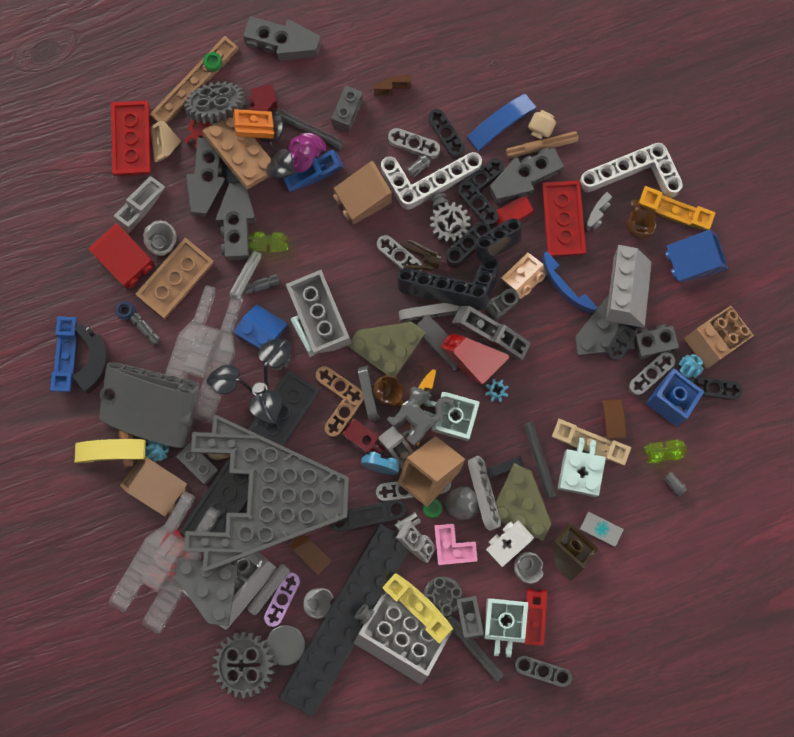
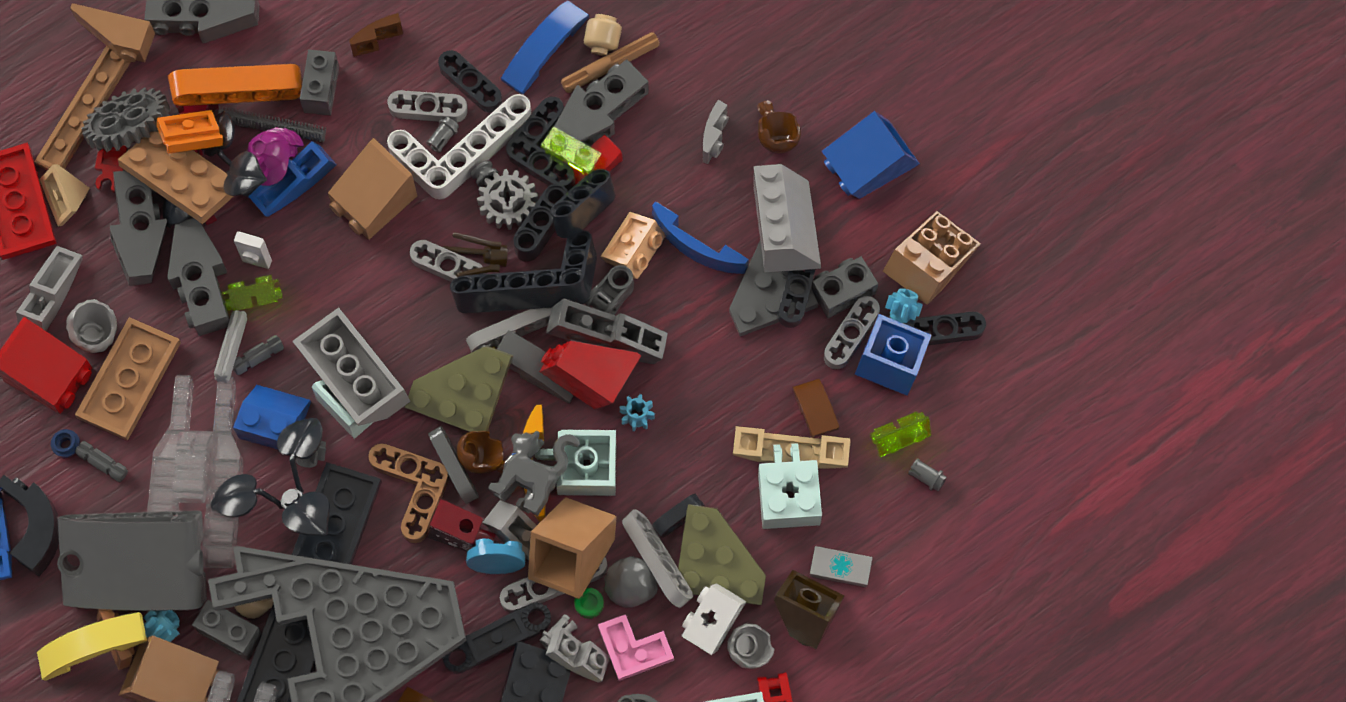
camera: 15 degrees left, 10 degrees down
(212, 61) = (109, 67): green tile -> none
(228, 43) = (122, 34): none -> medium nougat slope
(275, 214) = (252, 250): none -> white plate
(291, 97) = (235, 84): none -> orange beam
(500, 201) = (571, 150): none -> clear neon green hinge
(538, 457) = (724, 493): dark grey axle -> none
(563, 218) = (668, 153): red plate -> none
(634, 167) = (747, 60): white beam -> none
(675, 210) = (821, 103): light orange slope -> none

